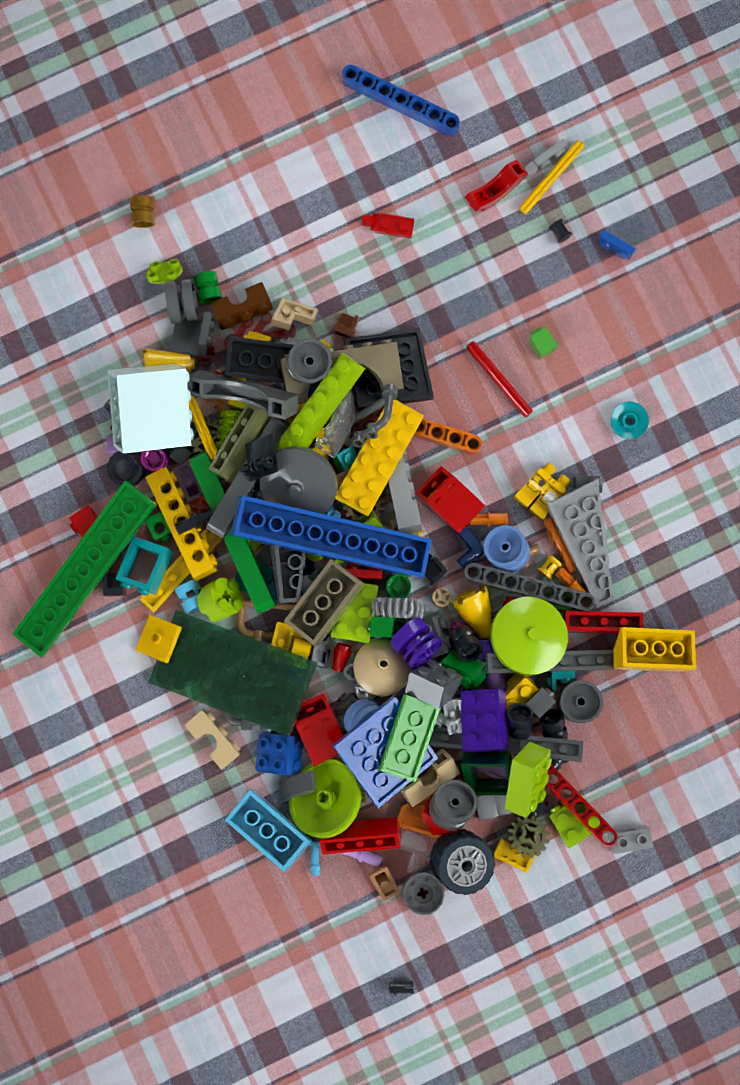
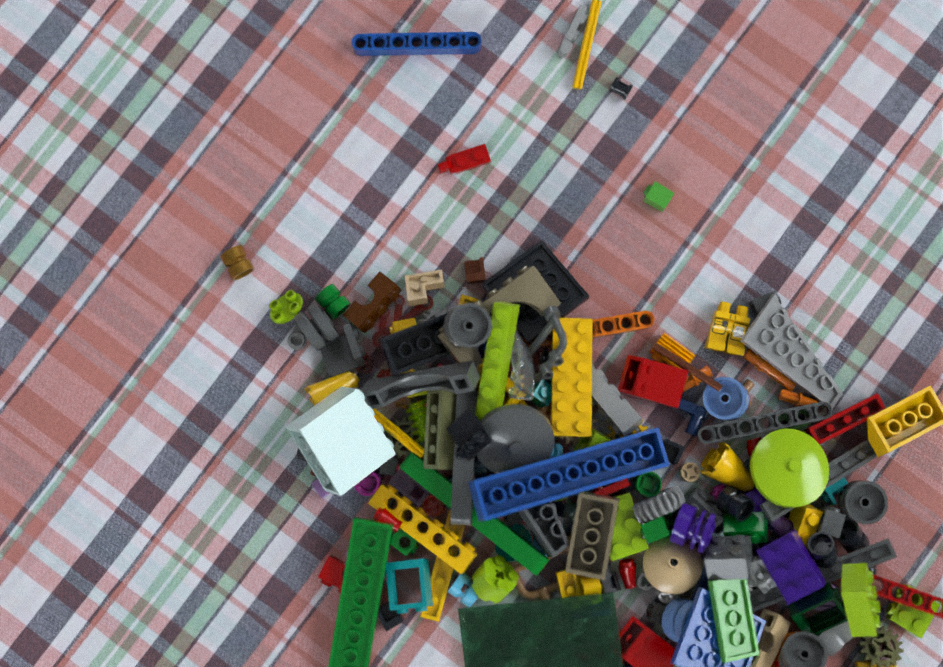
camera: 25 degrees left, 0 degrees up
(115, 458) = (347, 518): black tyre -> none
(153, 493) = (385, 516): none -> red cone
(158, 306) = (297, 340): none -> light grey plate
(158, 638) = (456, 643): yellow plate -> none
(193, 521) = (435, 522): black pin -> none
(481, 484) = (674, 347): none -> light orange brick
(488, 505) = (685, 365): none -> copper bar
(498, 187) = (545, 77): red arch -> none
(499, 379) = (636, 248): red axle -> none
(549, 566) = (772, 401): yellow bush -> none
(611, 242) = (683, 76): blue plate -> none
(636, 413) = (779, 221): teal dish -> none

